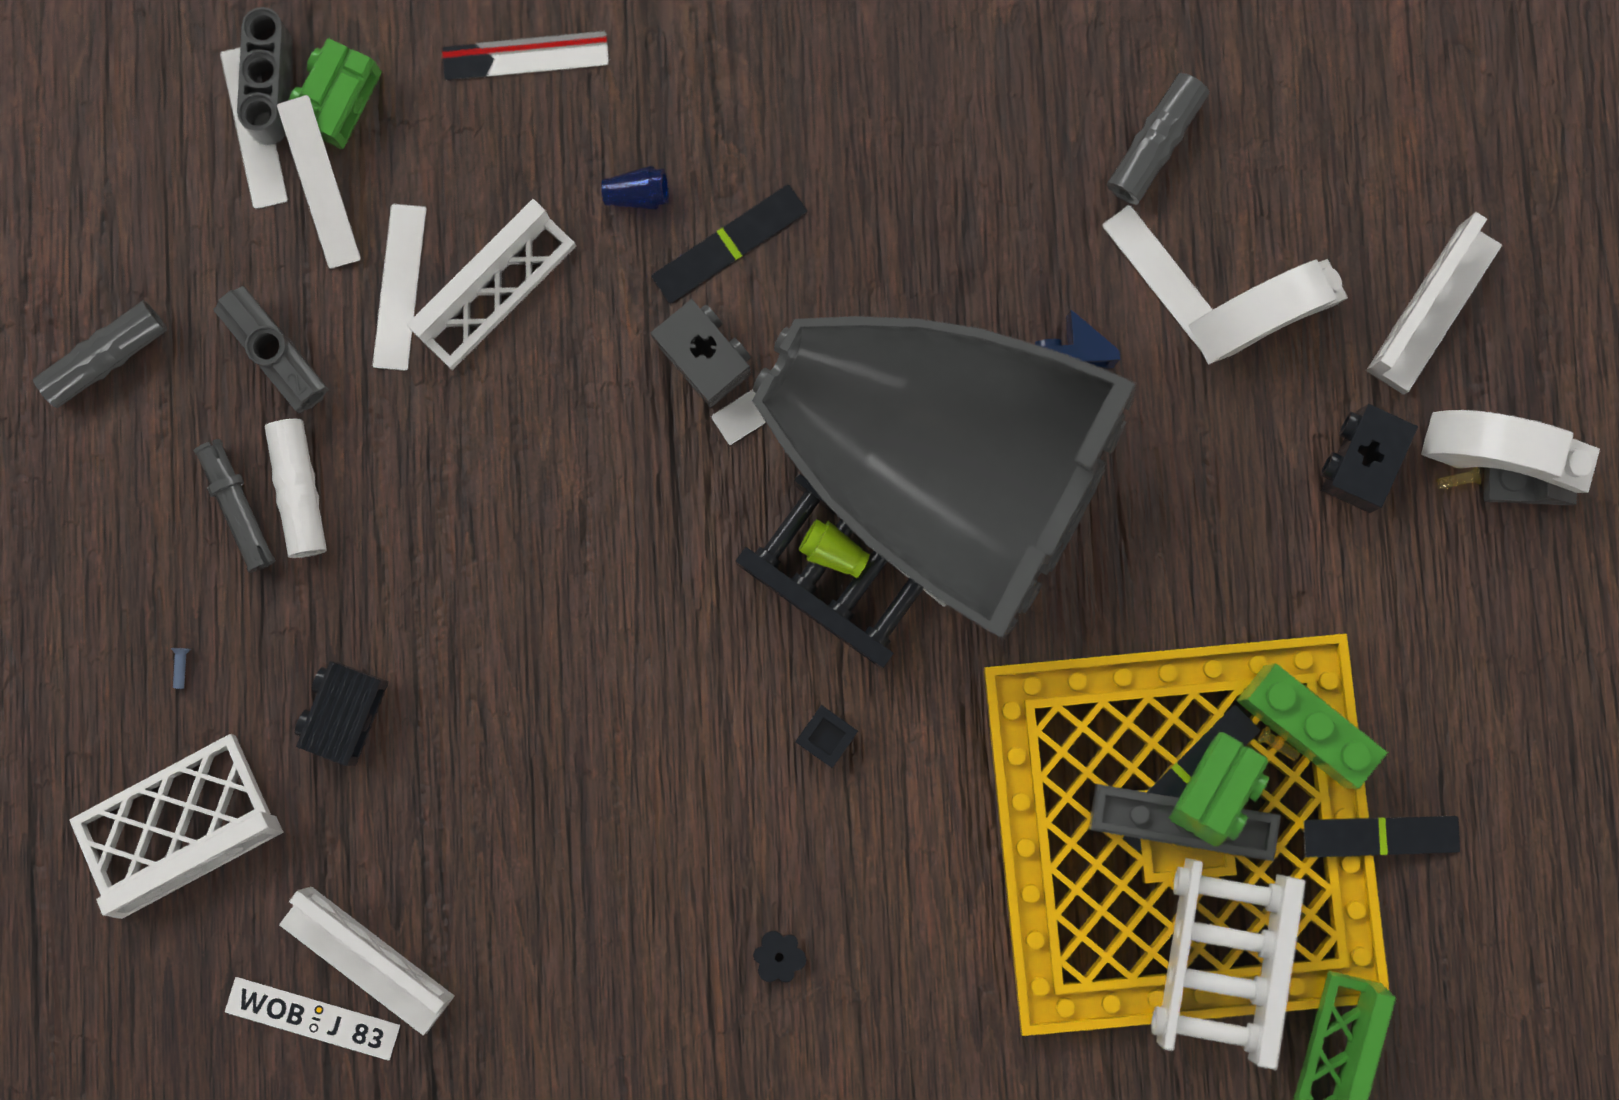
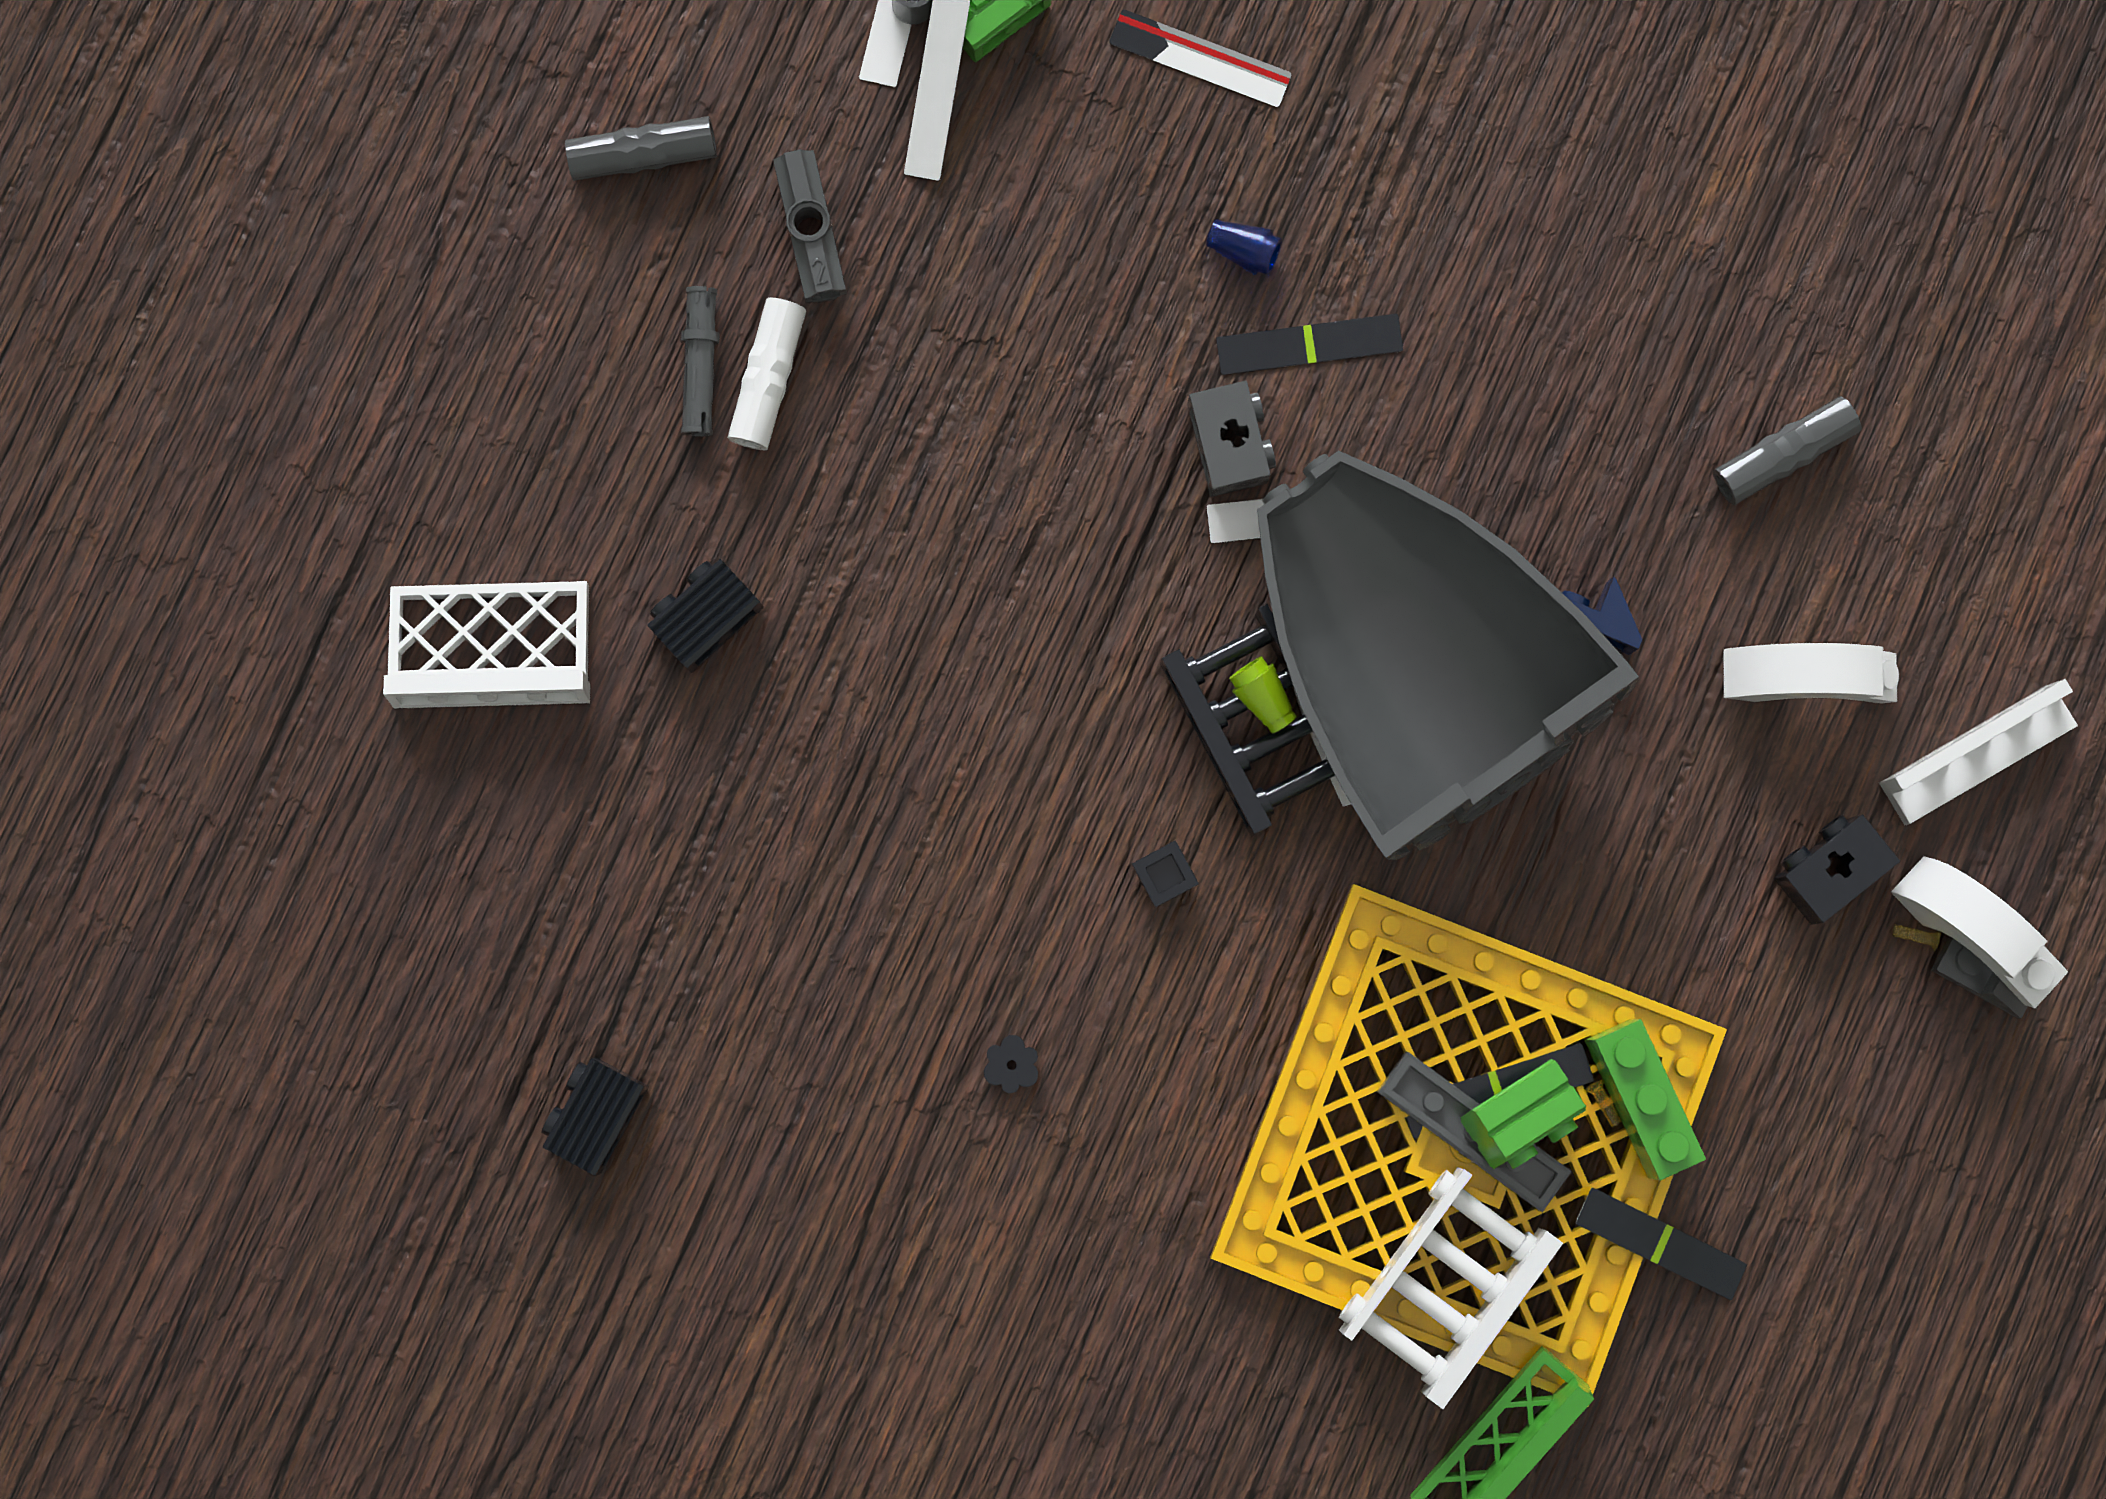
camera: 20 degrees right, 0 degrees up
(179, 667) = (568, 492): sand blue piece -> none
(312, 1018) = (529, 897): white sticker -> none
(366, 959) = (610, 866): white fence -> none
(399, 287) = (963, 226): white sticker -> none
(480, 273) = (1052, 252): white fence -> none
(1157, 268) = (1722, 577): white sticker -> none

